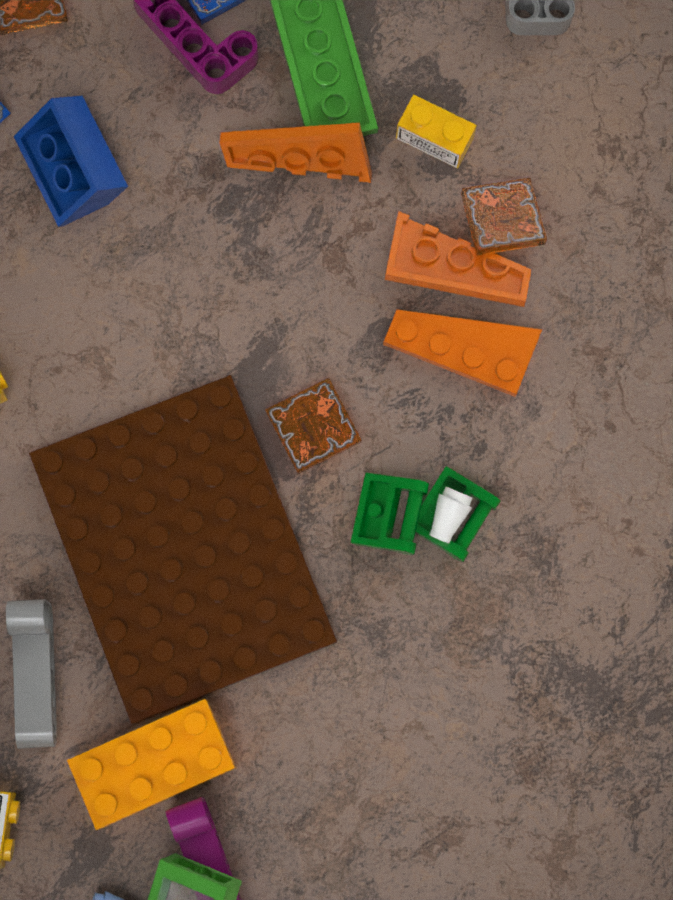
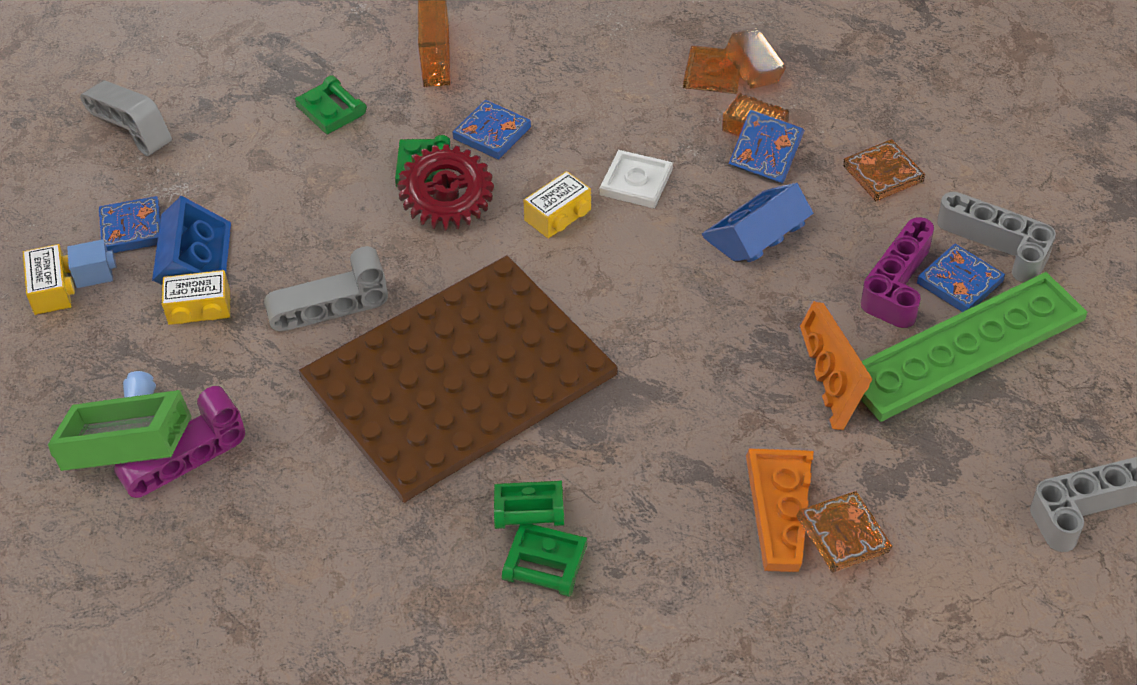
camera: 80 degrees right, 30 degrees down
(151, 764) = (267, 388): light orange brick -> none
(313, 426) = (593, 437): clear orange tile -> none
(435, 131) = (899, 458): yellow brick -> none
(449, 514) = (541, 542): white cone -> none
(471, 348) = (708, 542): orange wing -> none

